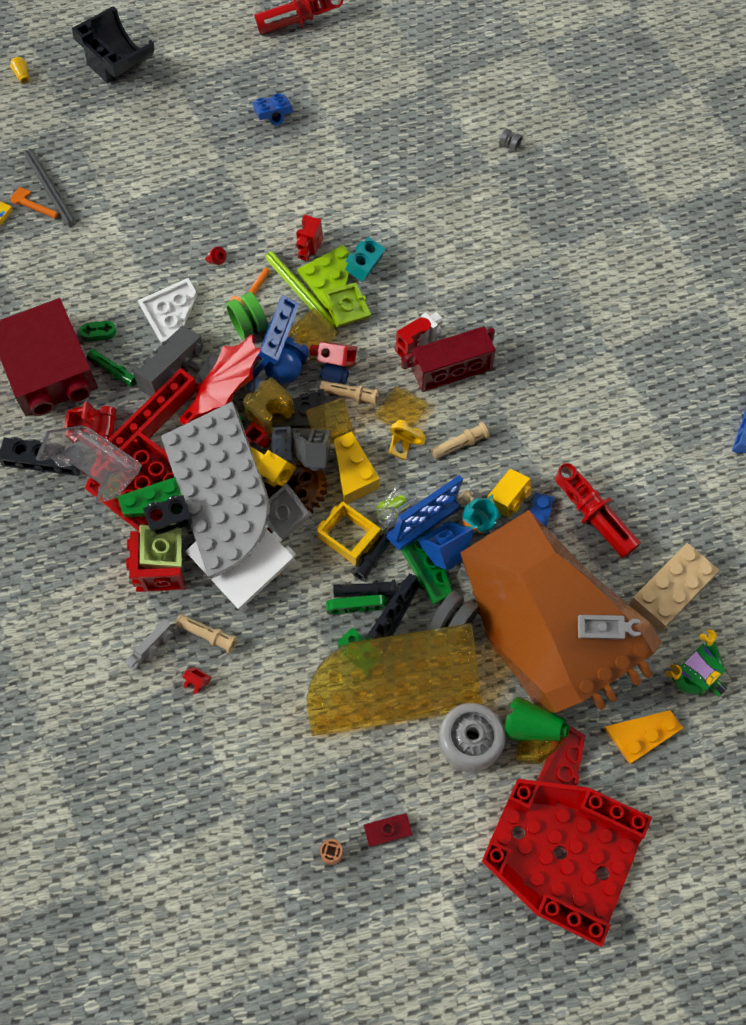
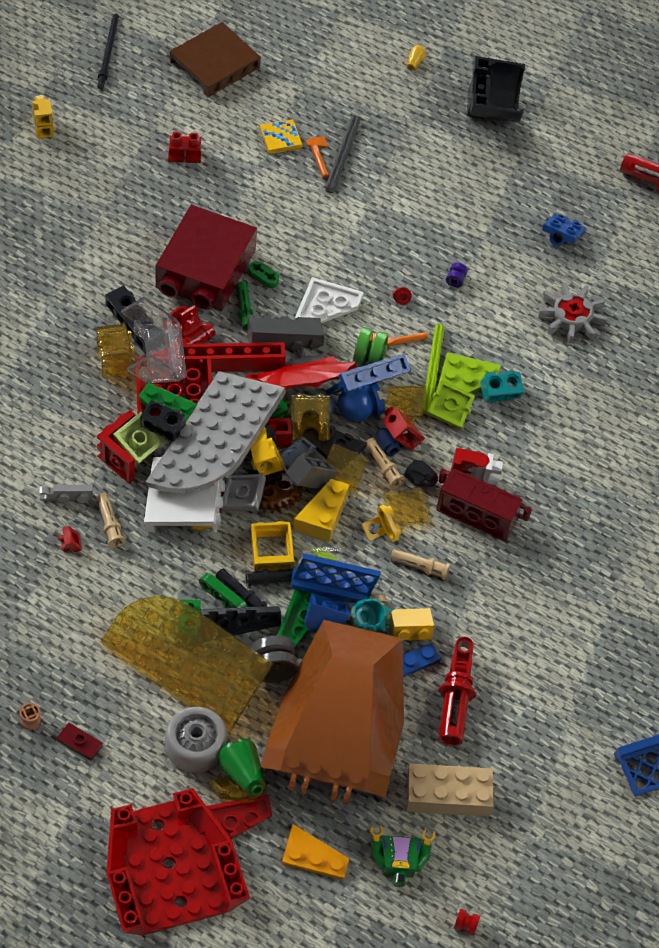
camera: 40 degrees right, 10 degrees down
(58, 492) = (115, 350): none -> clear yellow piece
(238, 206) = (456, 275): none -> dark purple wheel
(309, 237) = (477, 338): red hips -> none
(347, 162) = (572, 312): none -> light grey gear
(385, 374) = (421, 473): none -> black rock
(605, 627) = (345, 735): light grey plate -> none

